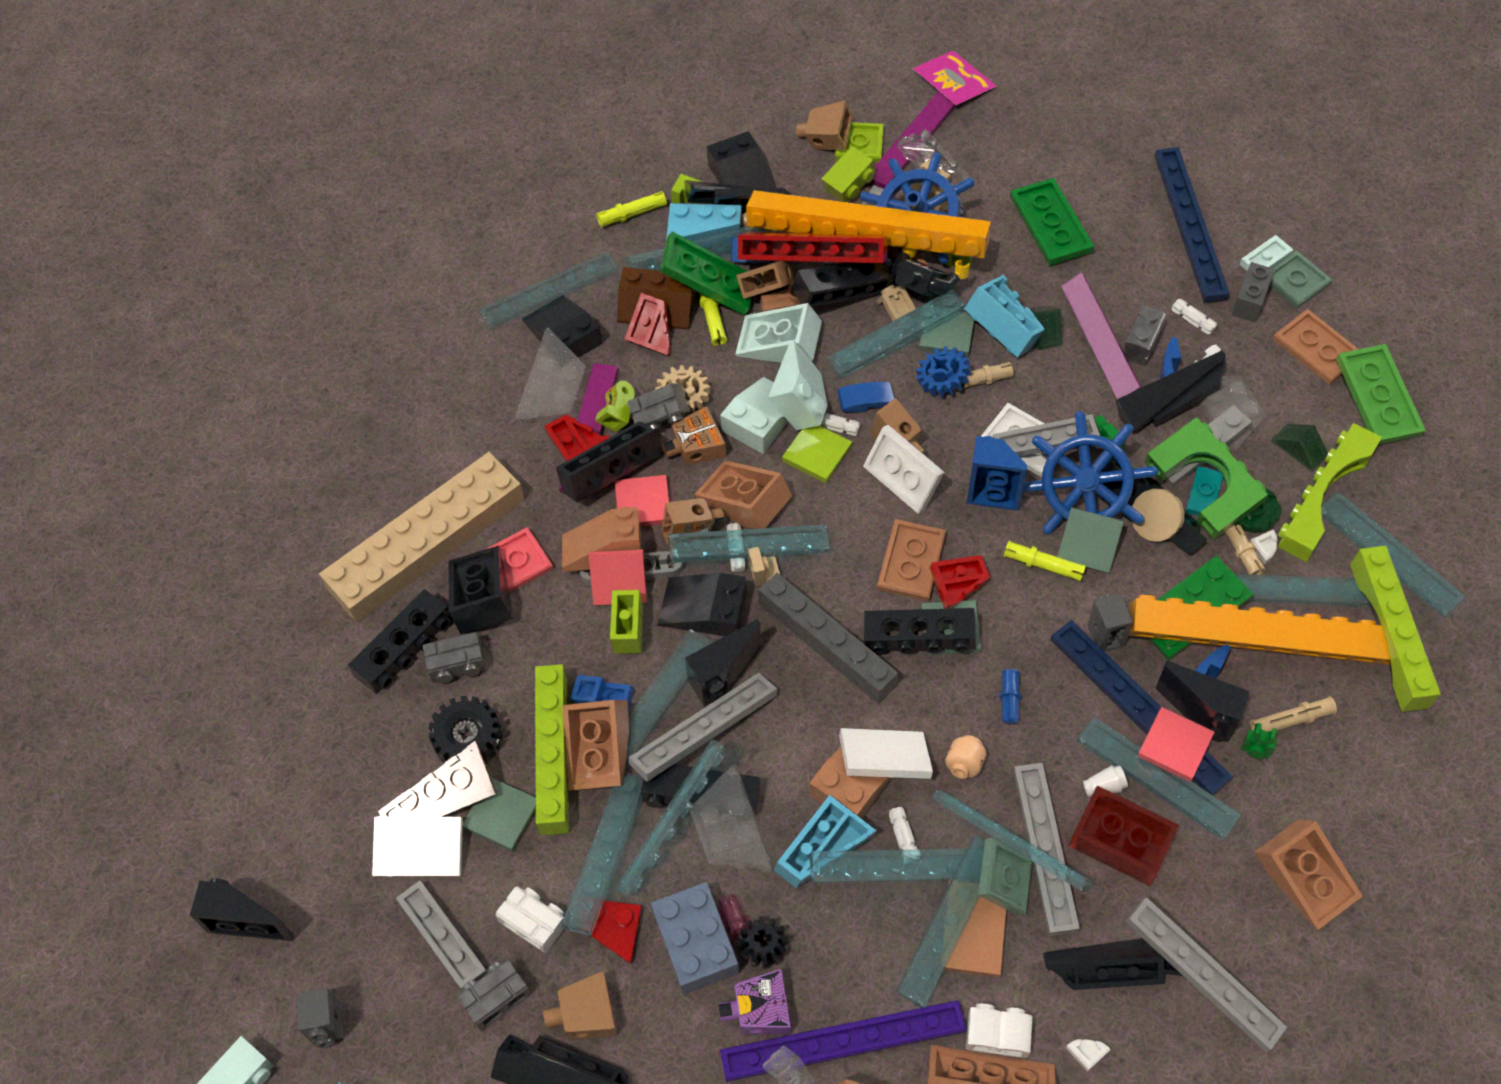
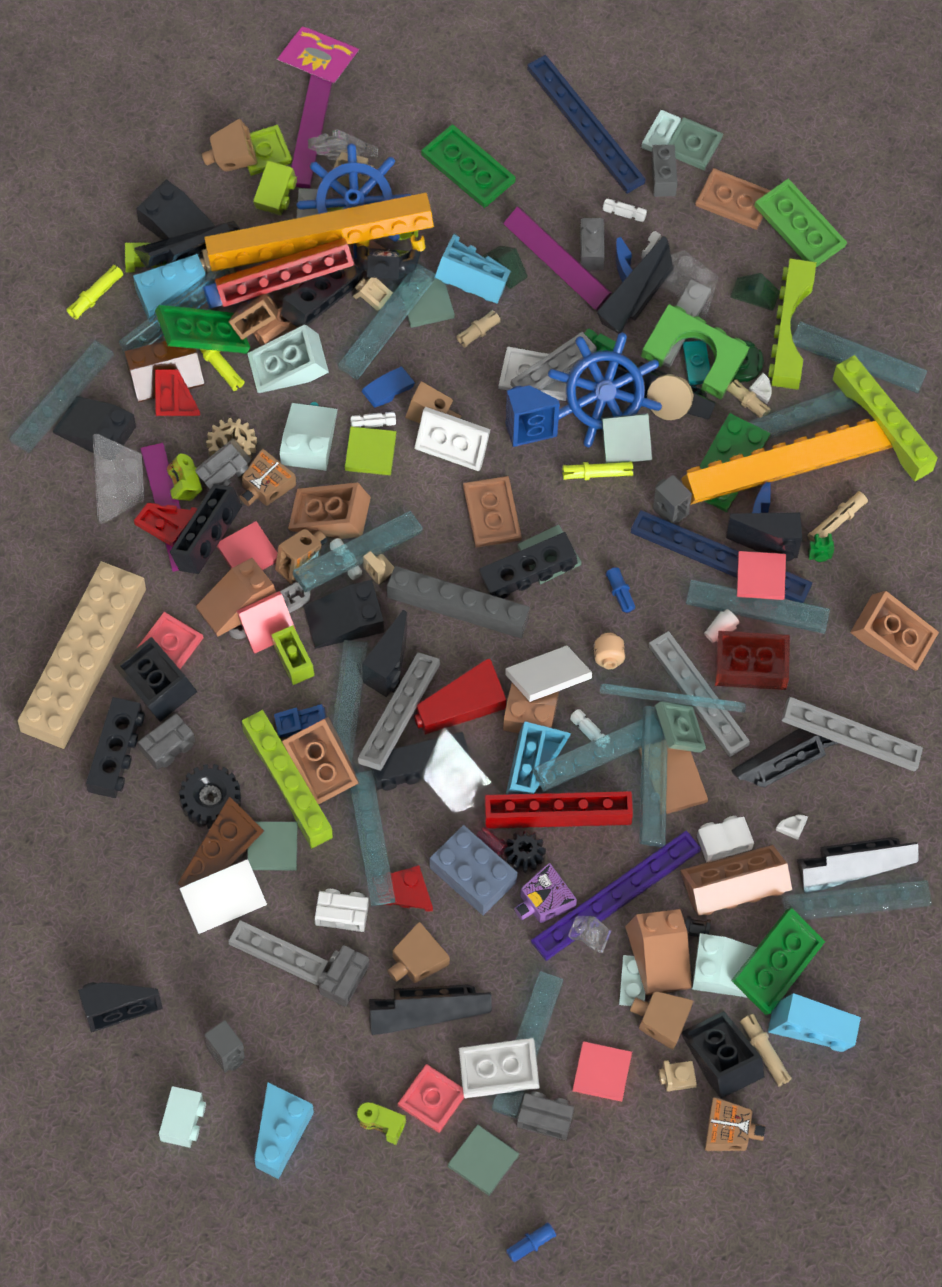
camera: 30 degrees left, 5 degrees up
(664, 828) = (410, 795): clear light blue plate -> none
(779, 743) = (464, 699): none -> red slope
(799, 390) = (334, 405): light aqua slope -> none
(822, 911) = (558, 809): none -> red brick
(943, 371) = (443, 342): blue gear -> none
(958, 578) = (538, 512): red wing -> none

